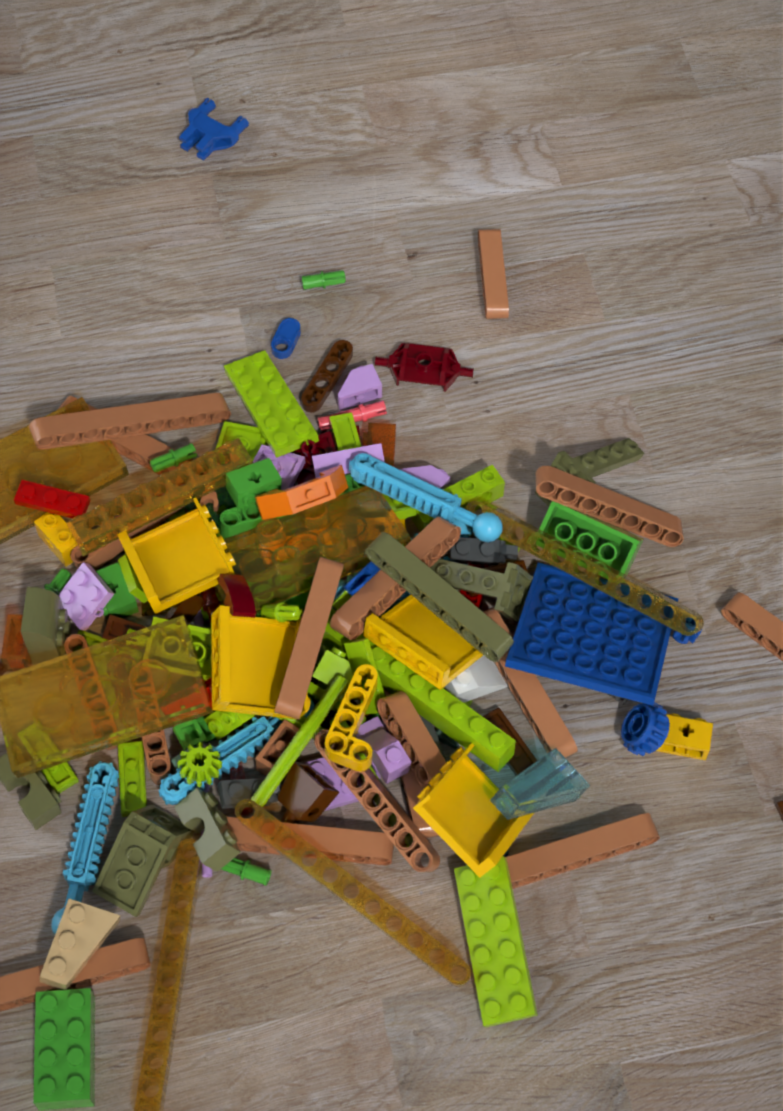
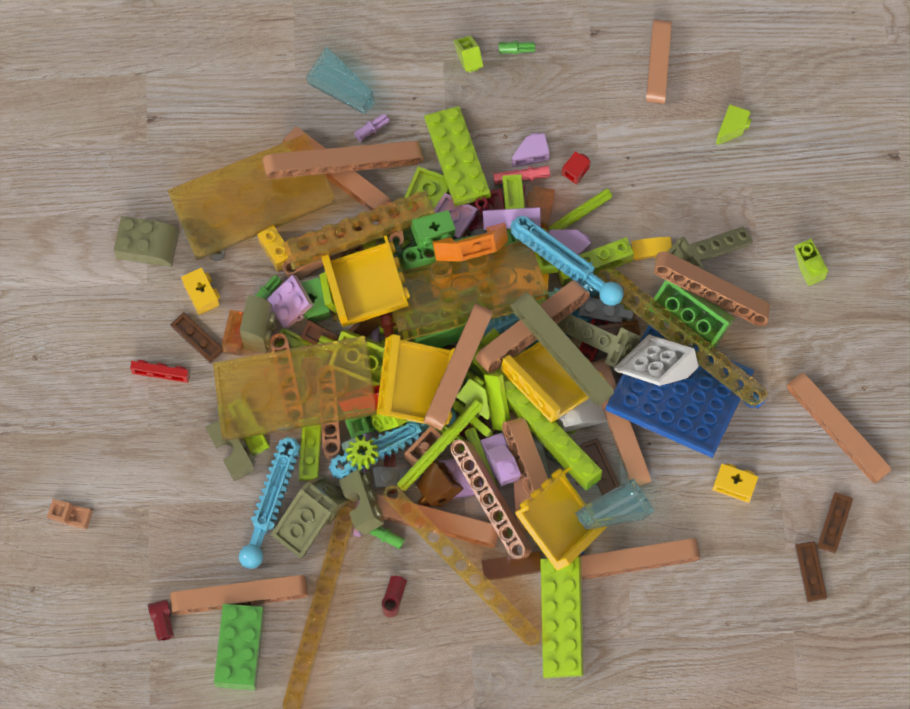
camera: 10 degrees right, 10 degrees up
(51, 499) = (273, 219): red plate -> none
(75, 942) = (256, 572): tan wedge -> none
(117, 342) = (338, 81): none -> clear light blue slope
(162, 386) = (371, 127): none -> lavender axle
(173, 458) = (373, 195): bright green axle -> none
(237, 595) = (408, 324): dark red slope -> none
(266, 947) = (393, 595): none -> dark red piece
(268, 293) = (468, 53): none -> lime slope
(281, 612) = (439, 342): lime axle -> none
(288, 334) = (480, 93): blue piece -> none
(330, 377) = (507, 136): reddish brown beam -> none
(354, 714) = (484, 433): yellow beam -> none
(361, 578) = (504, 324): blue piece -> none
(416, 398) = (576, 167): none -> red brick
(417, 885) = (510, 567): none -> reddish brown tile
(433, 444) = (581, 211): none -> lime axle
(441, 371) = (599, 146): dark red plate -> none
(521, 476) = (650, 247): none -> yellow slope
(562, 598) = (659, 361): none -> white slope
(594, 328) = (734, 124): none -> lime slope
(645, 728) = (705, 473): blue gear -> none
(719, 466) = (810, 262): none -> lime slope

